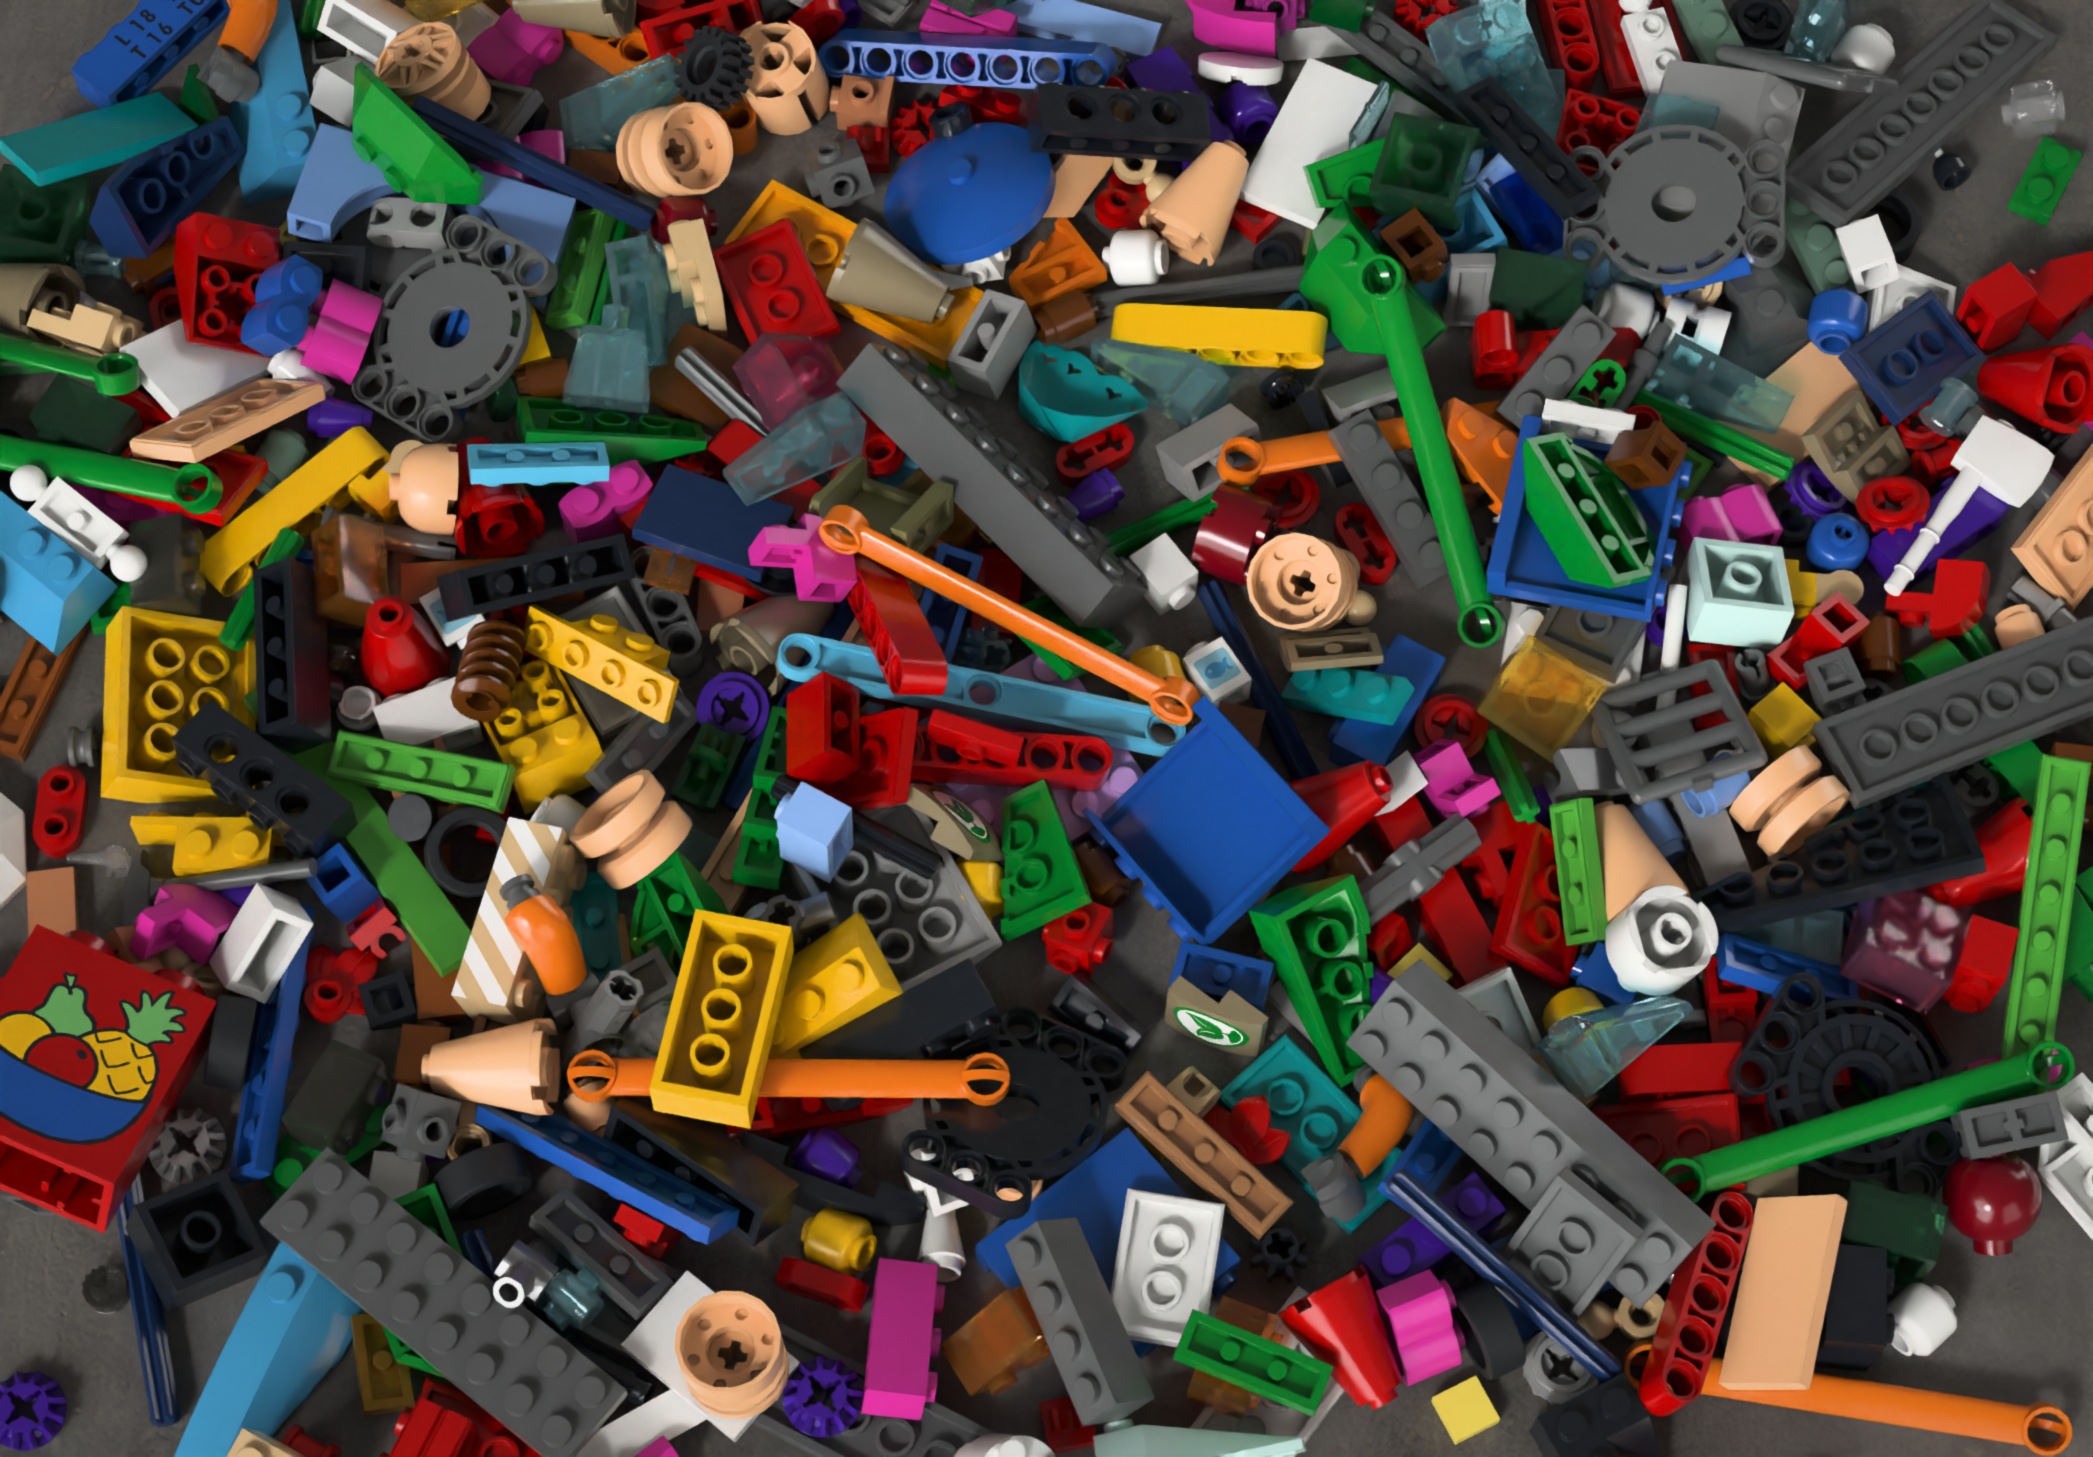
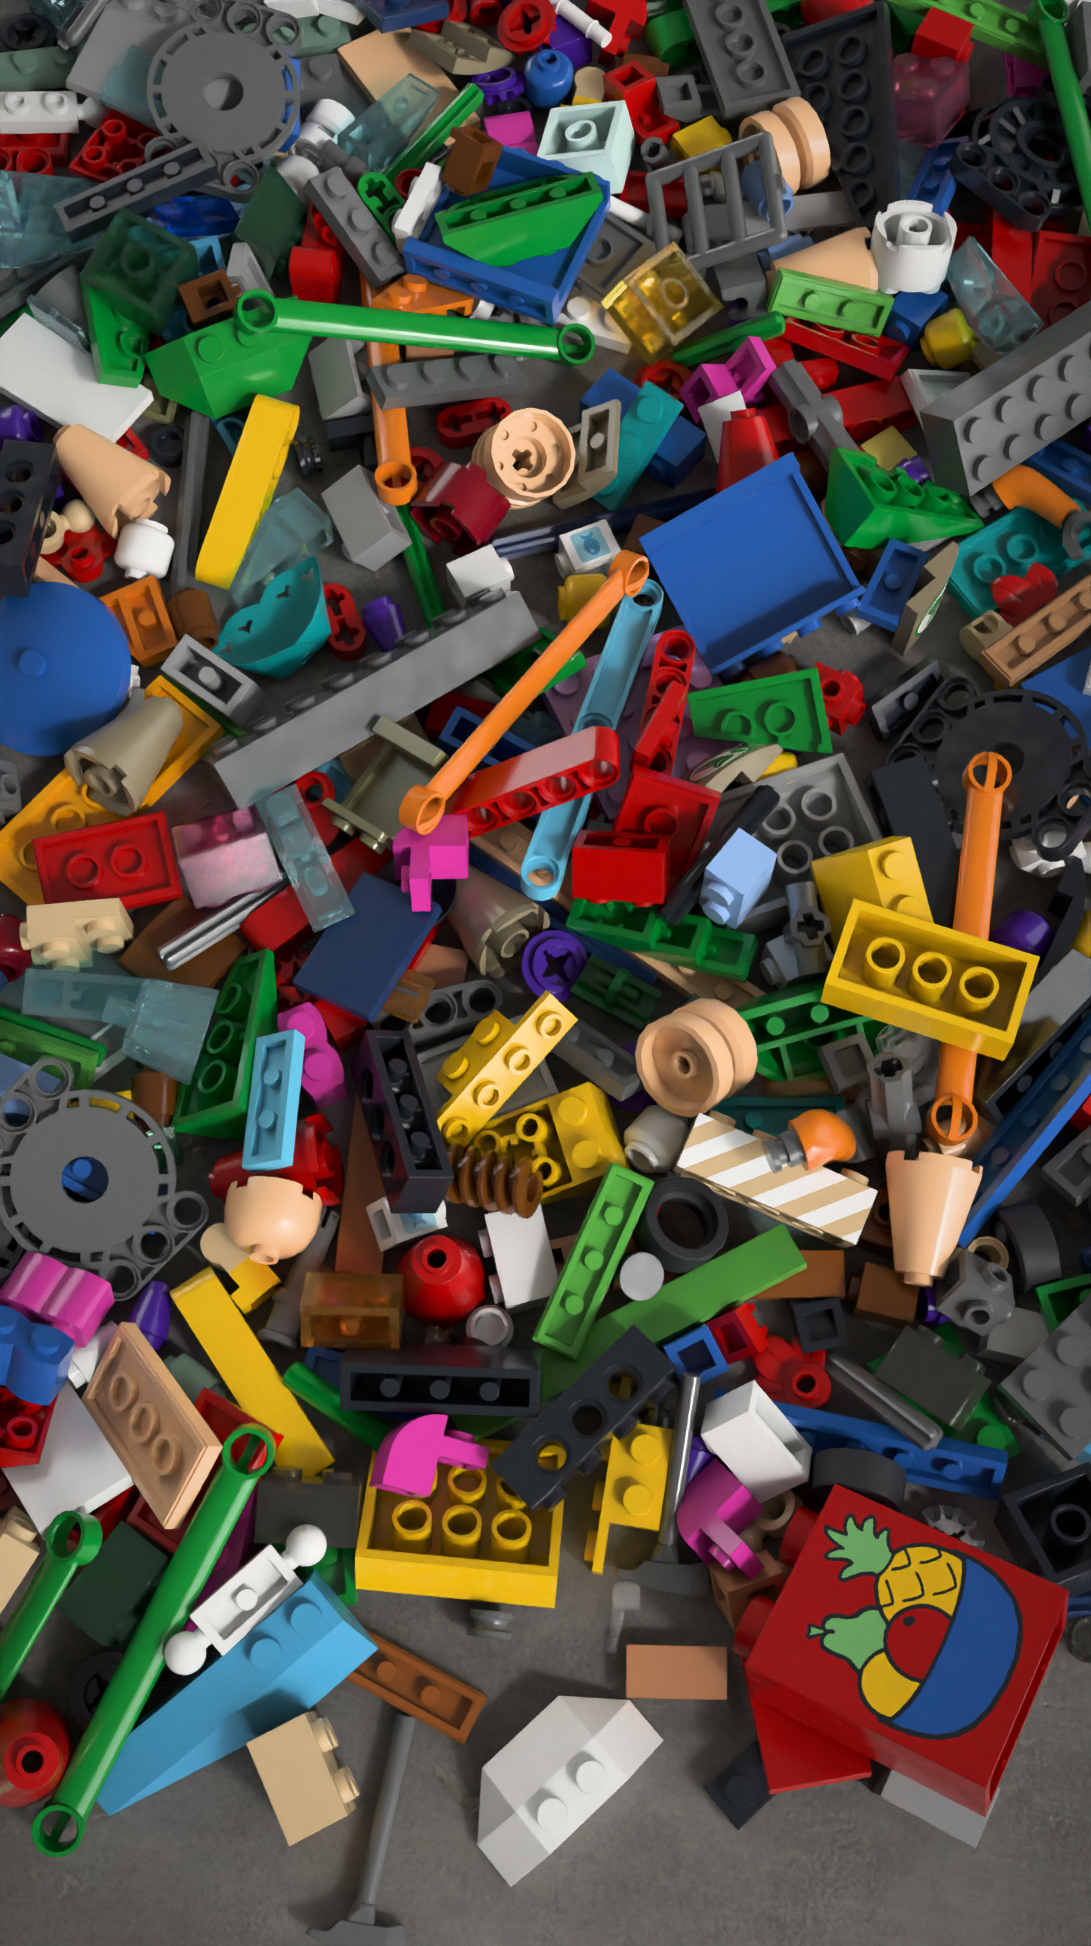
camera: 80 degrees left, 5 degrees up
(61, 808) = (556, 1657): red plate -> none
(222, 638) = (411, 1454): none -> dark pink brick
(297, 1068) = (883, 1401): none -> dark grey axle
(1836, 320) = (343, 30): blue head -> none

